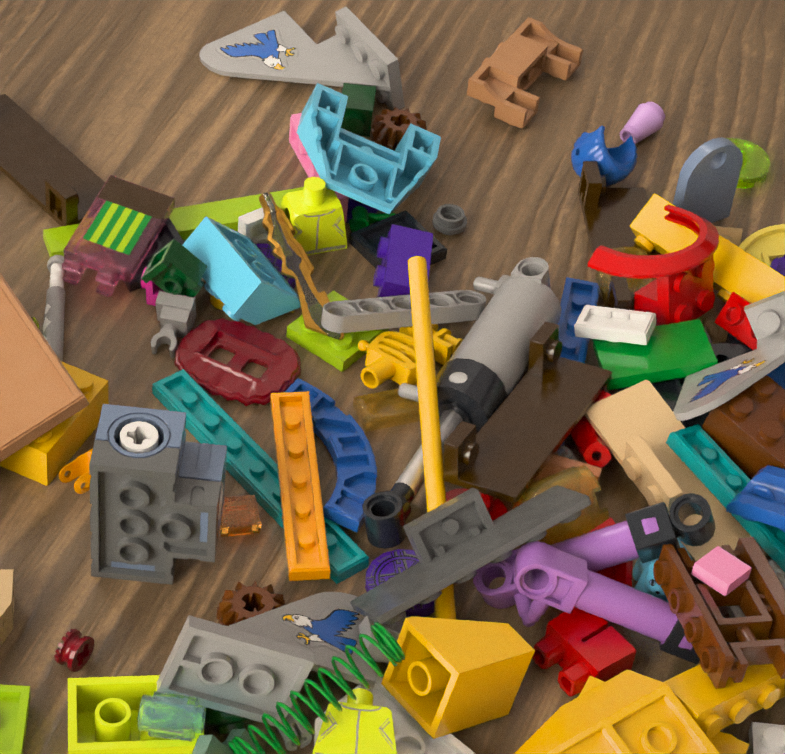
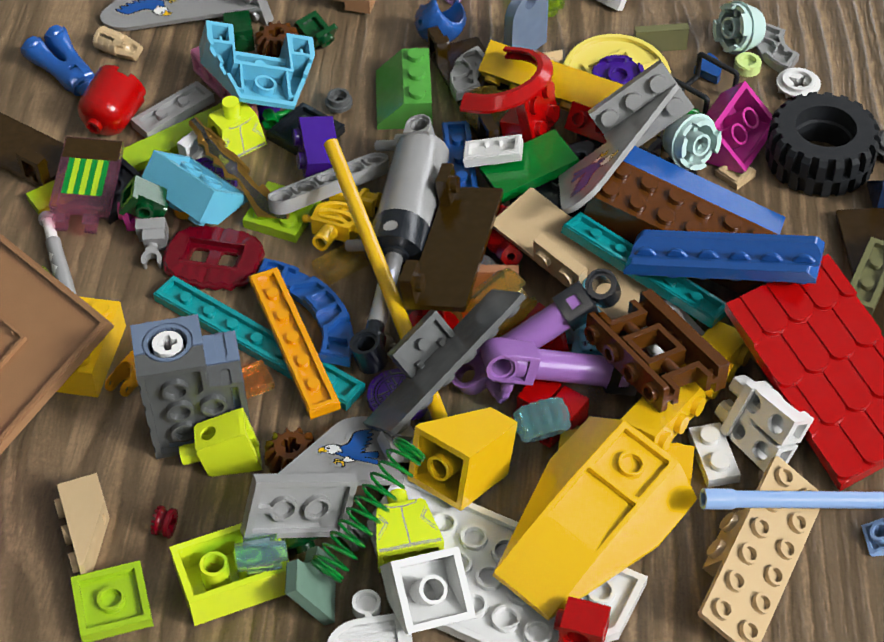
camera: 10 degrees left, 5 degrees up
(136, 91) = (59, 59): none -> blue piece
(174, 580) = (224, 445): none -> neon yellow torso
(176, 149) = (110, 101): none -> red cylinder
(207, 87) = (116, 44): none -> tan hinge
(248, 179) = (173, 109): none -> light grey plate
(450, 127) = (314, 26): none -> dark green bracket
(534, 225) = (403, 88): none -> bright green slope
(567, 656) = (542, 419): none -> clear light blue gear
(613, 227) = (465, 73): none -> light grey tile
(721, 571) = (636, 321): bright pink tile -> none

